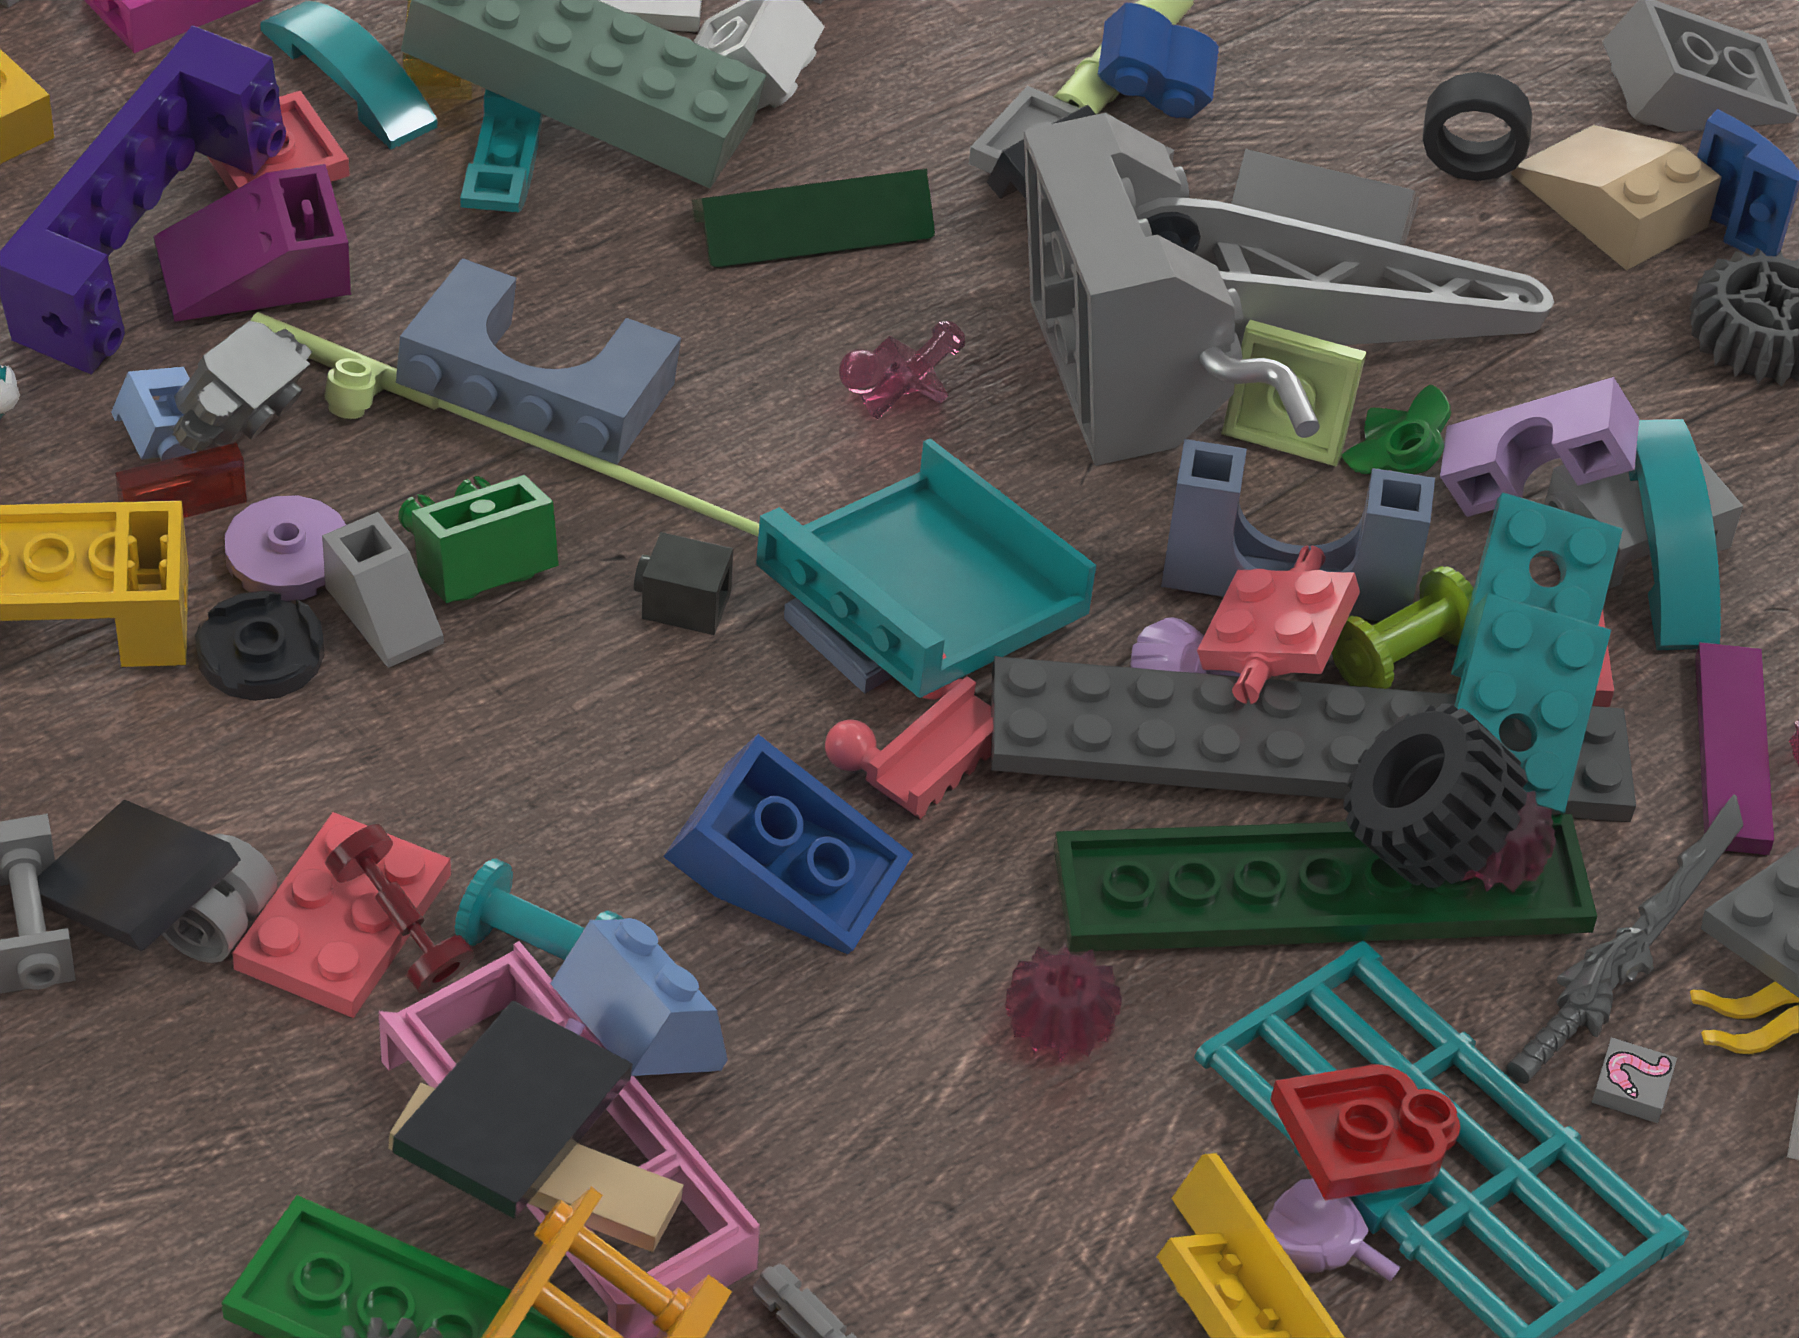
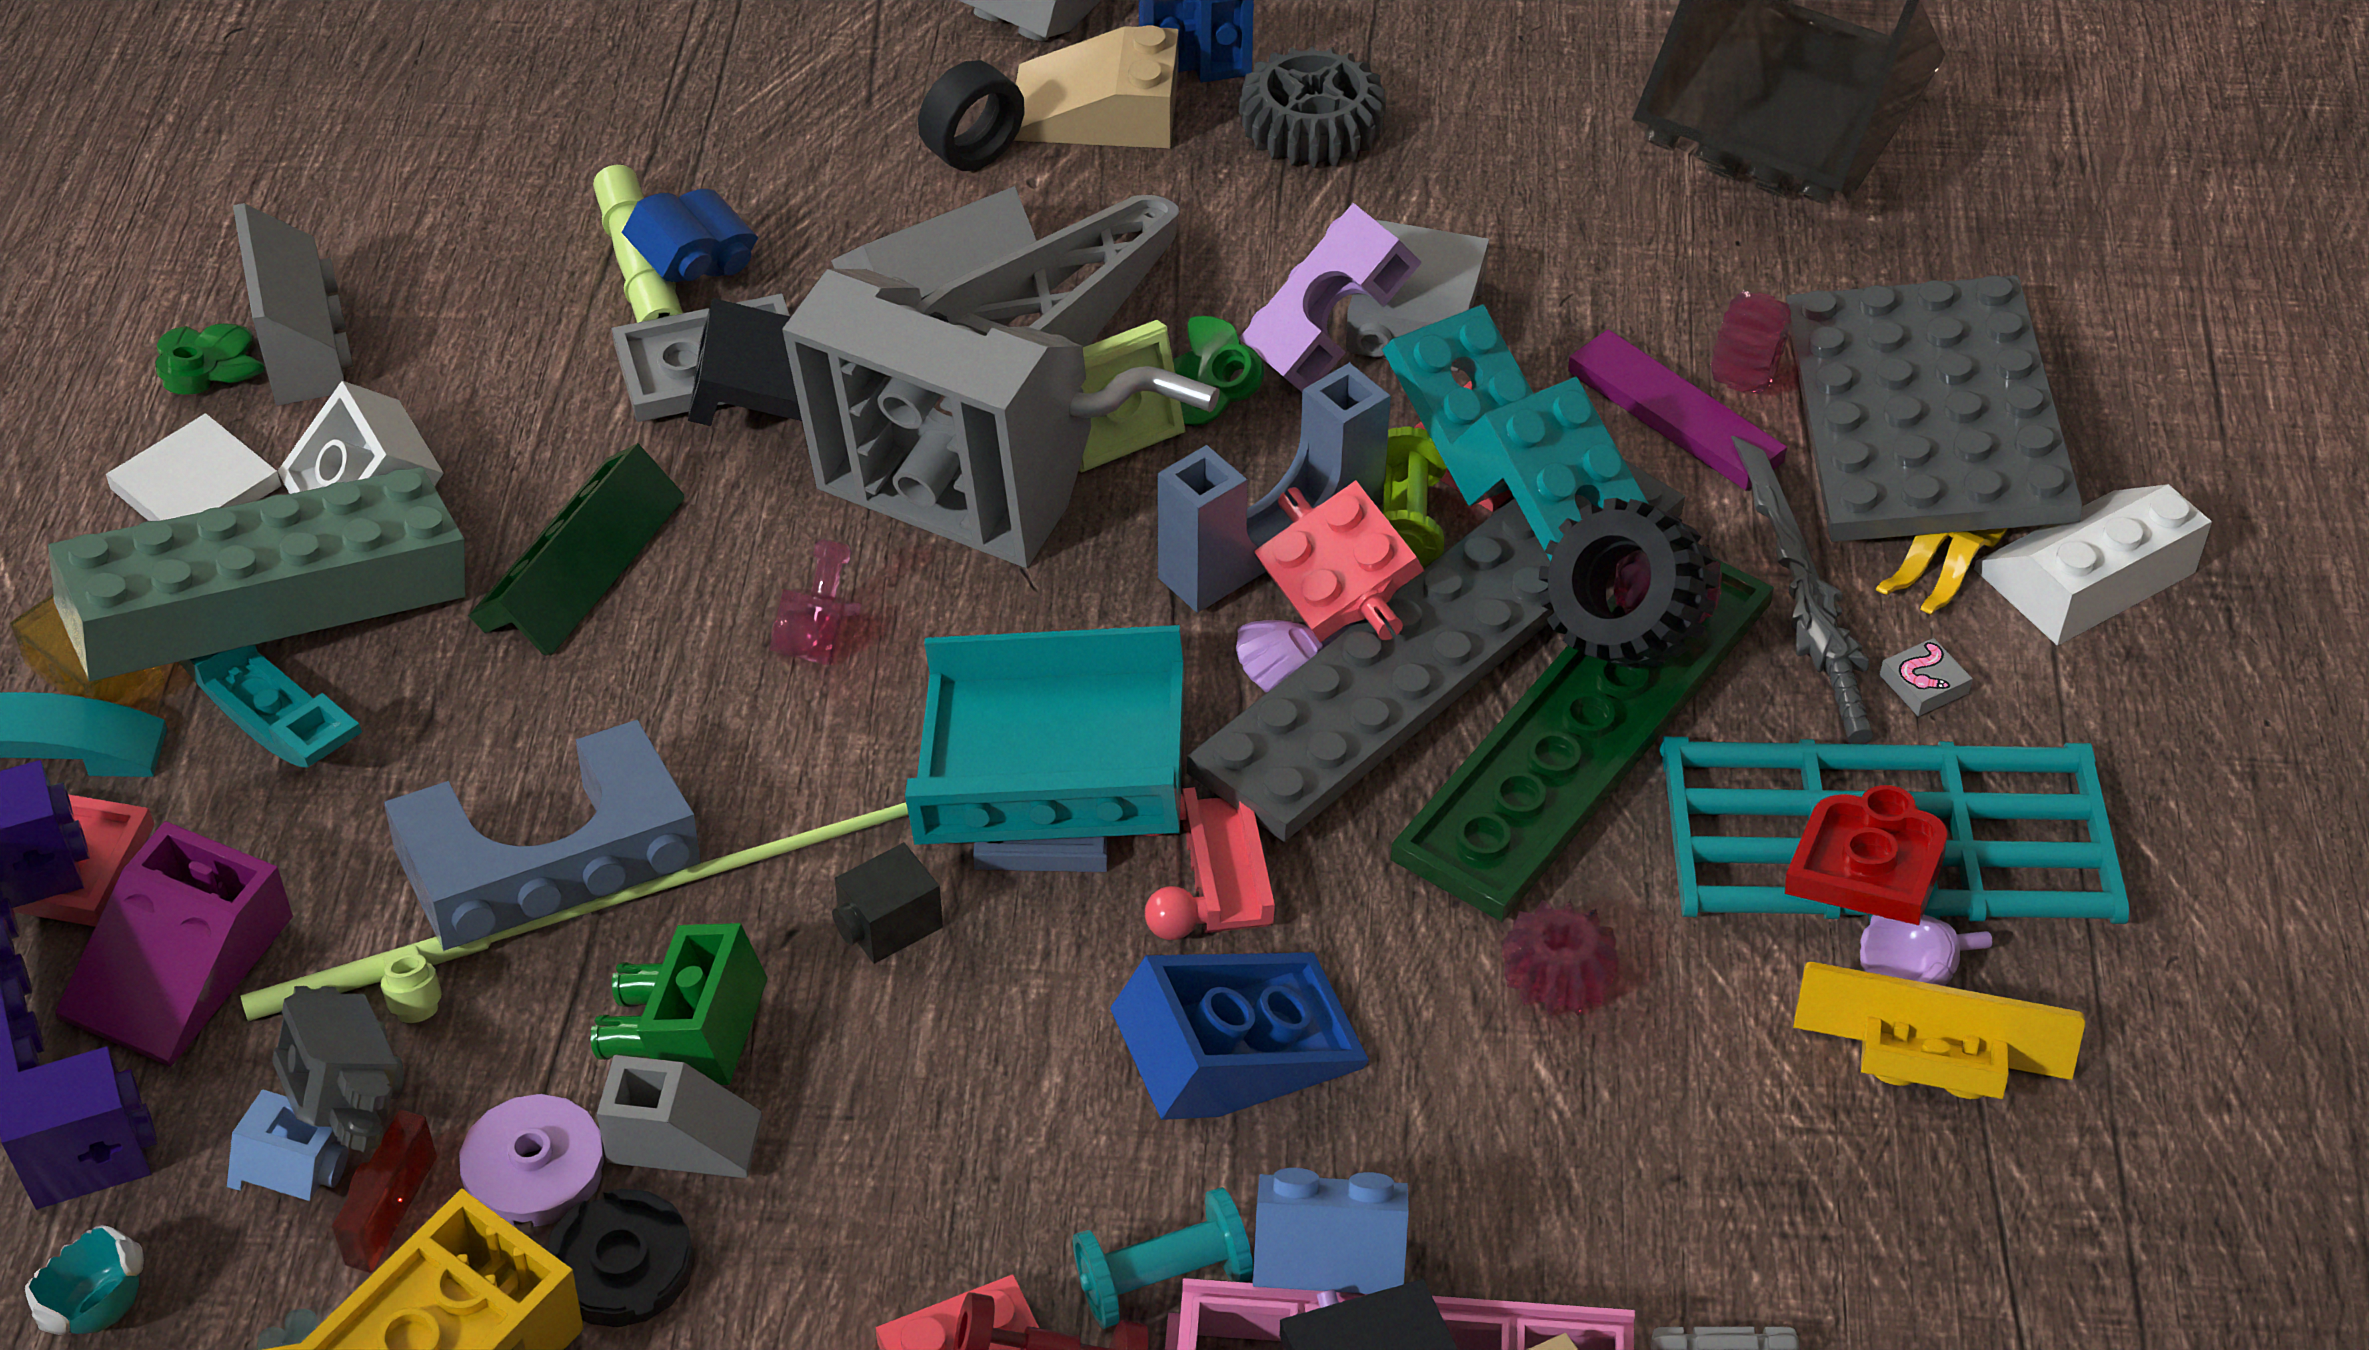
camera: 45 degrees left, 0 degrees up
(1679, 536) = (1479, 278): teal slope -> none

